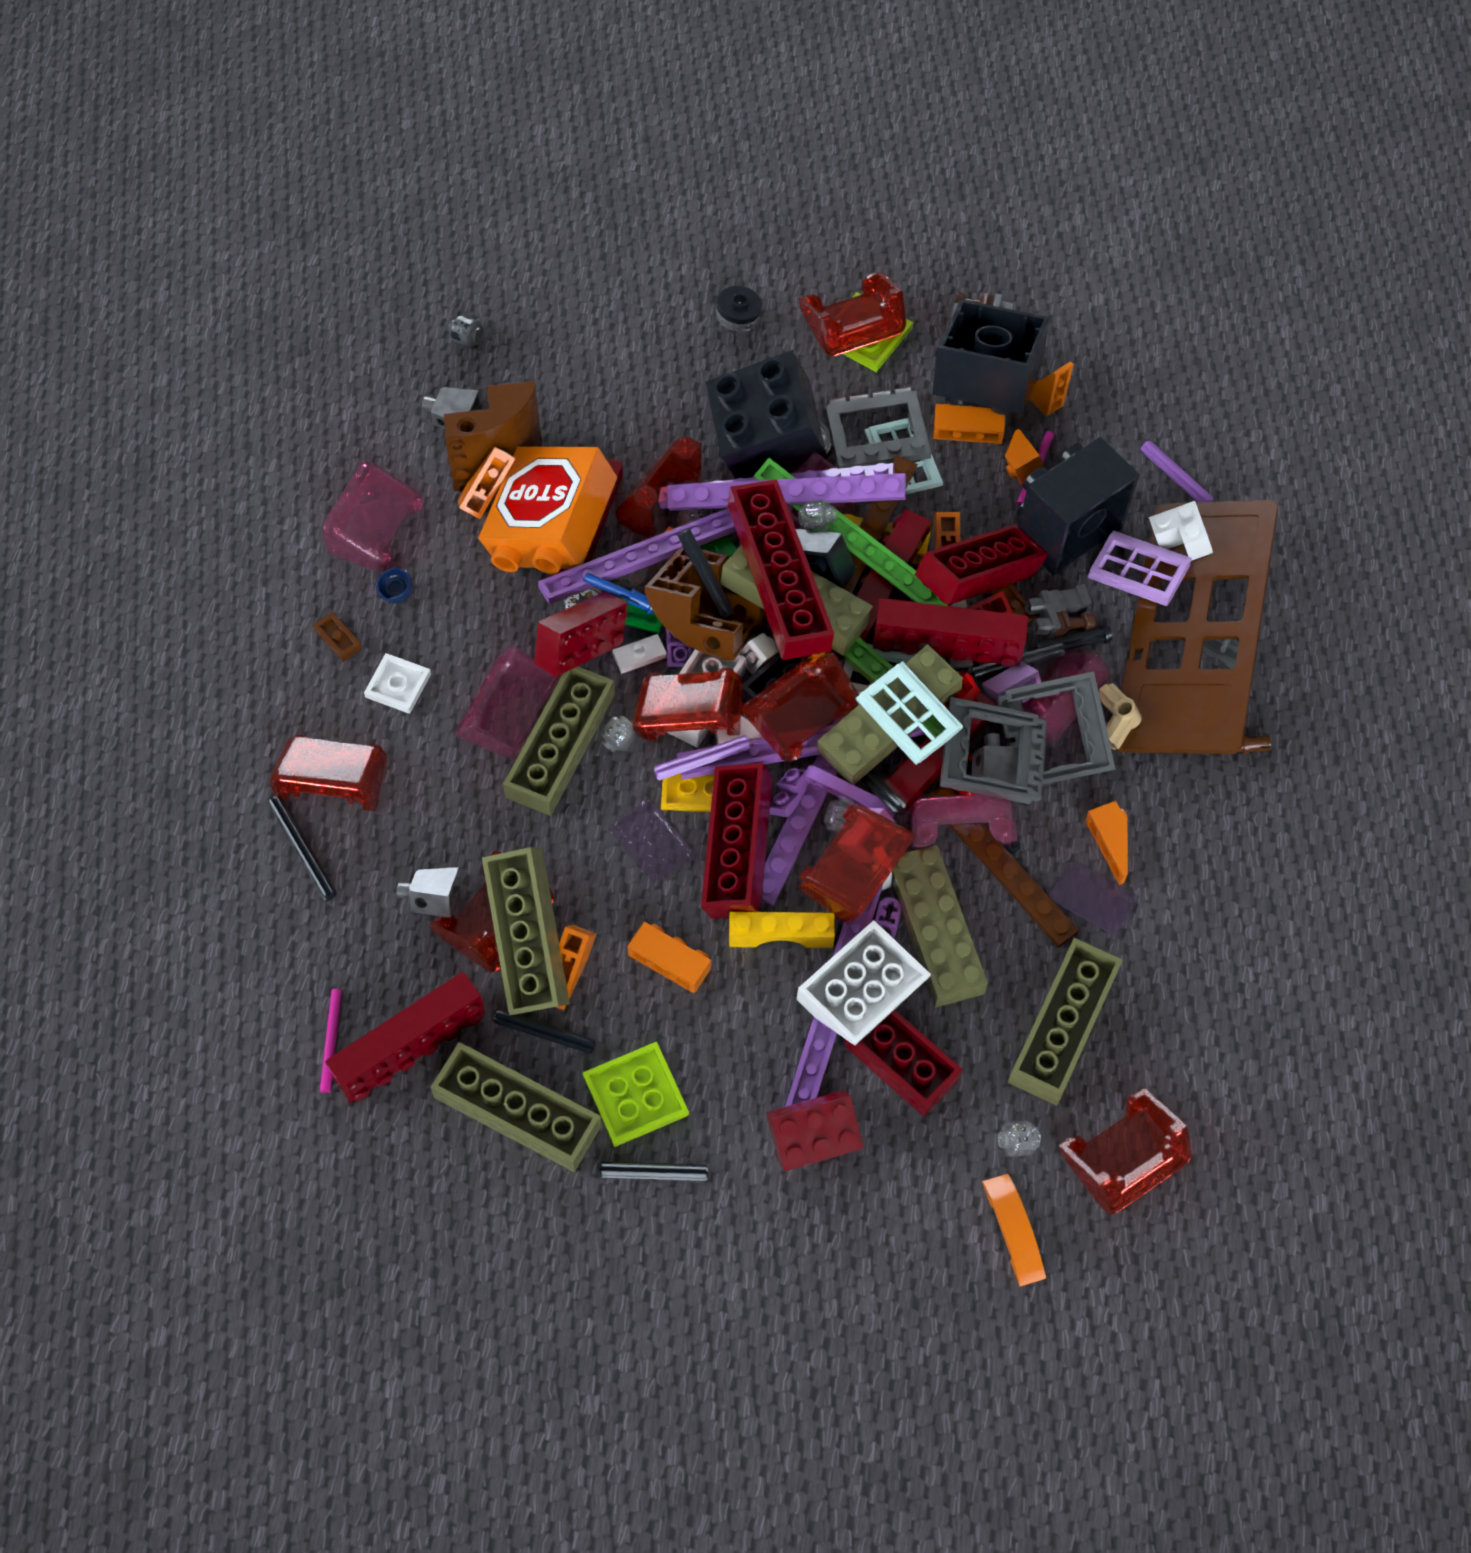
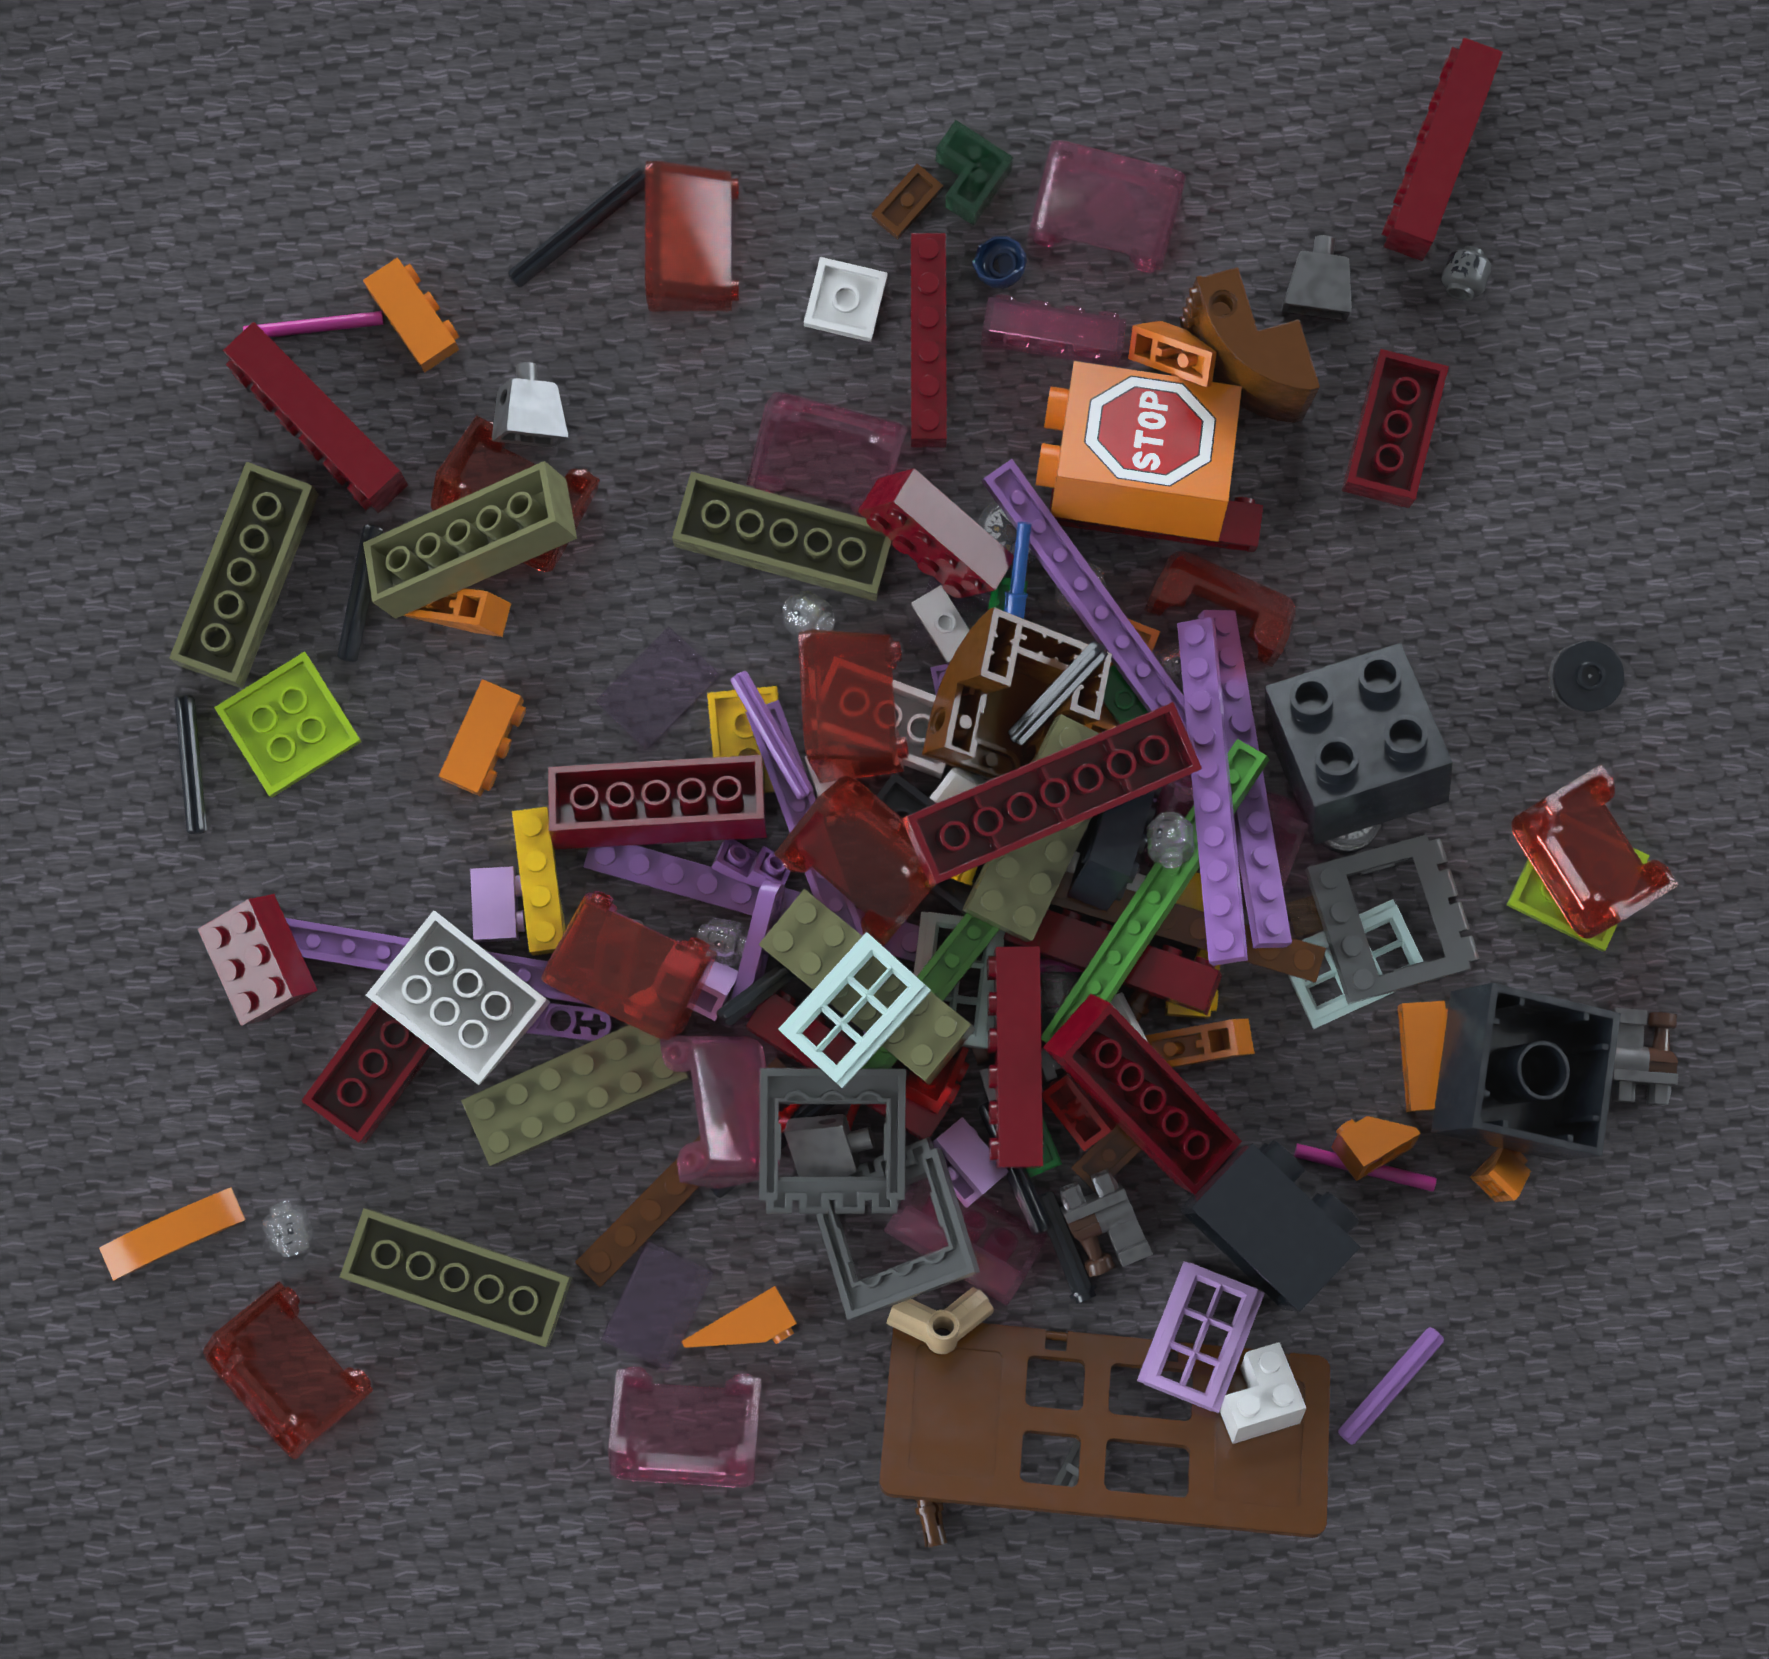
camera: 80 degrees right, 20 degrees up
(325, 587) = (980, 170): none -> clear green brick
(340, 965) = (412, 313): none -> orange brick
(383, 327) = (1440, 148): none -> dark red brick
(437, 633) = (928, 340): none -> dark red brick
(451, 559) = (1053, 331): none -> clear pink slope
(562, 379) = (1395, 428): none -> dark red brick
(792, 962) = (496, 904): none -> lavender brick
(1184, 882) = (684, 1431): none -> clear pink windscreen

